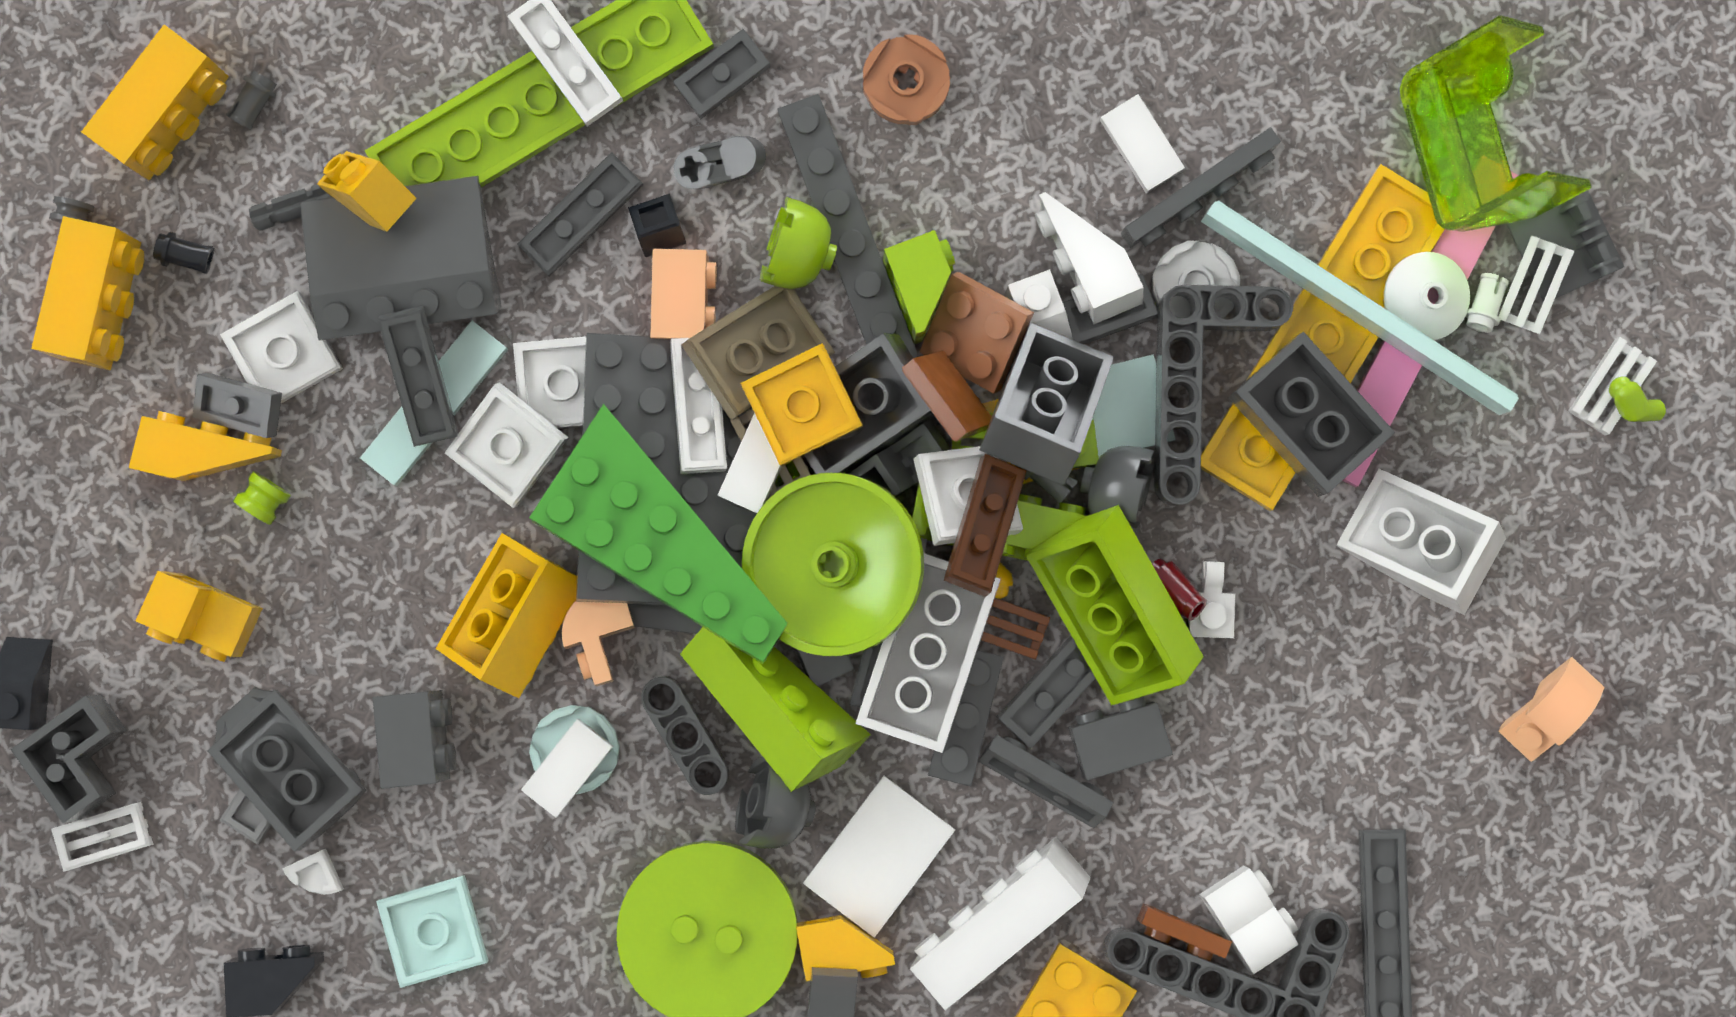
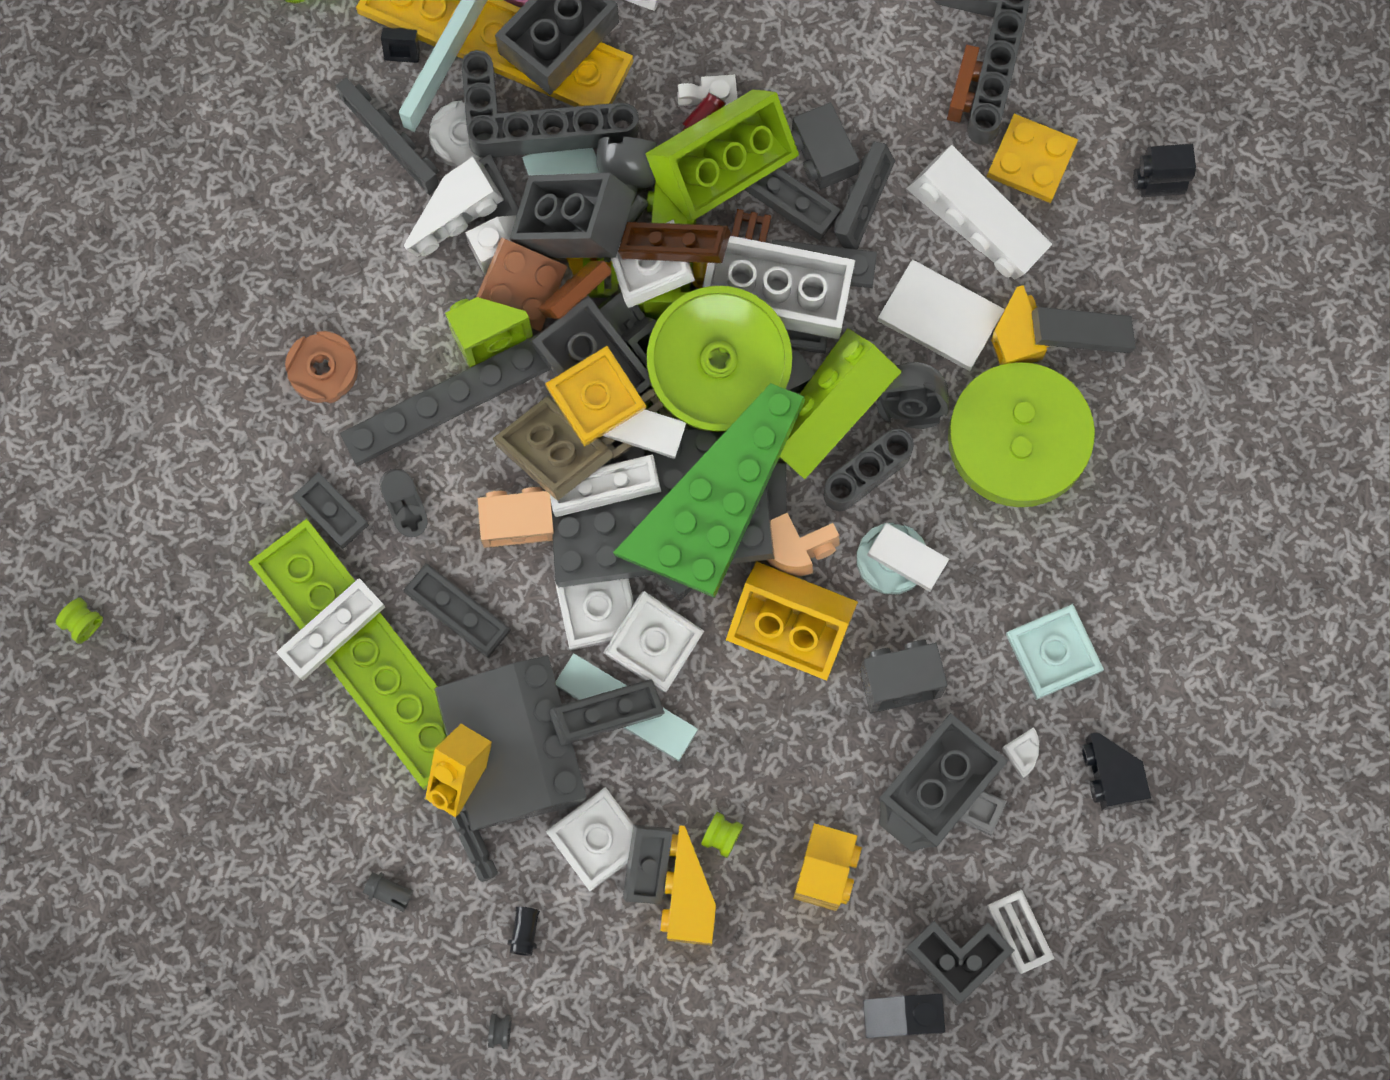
camera: 90 degrees left, 10 degrees down
(88, 294) = (569, 996): yellow brick -> none
(157, 104) = (401, 961): yellow brick -> none
(657, 225) = (459, 548): black slope -> none
(798, 246) = (466, 429): lime cylinder -> none
(1142, 143) = (356, 185): white tile -> none
(1250, 919) = (944, 40): white brick -> none
(1323, 216) = (400, 45): none -> black plate

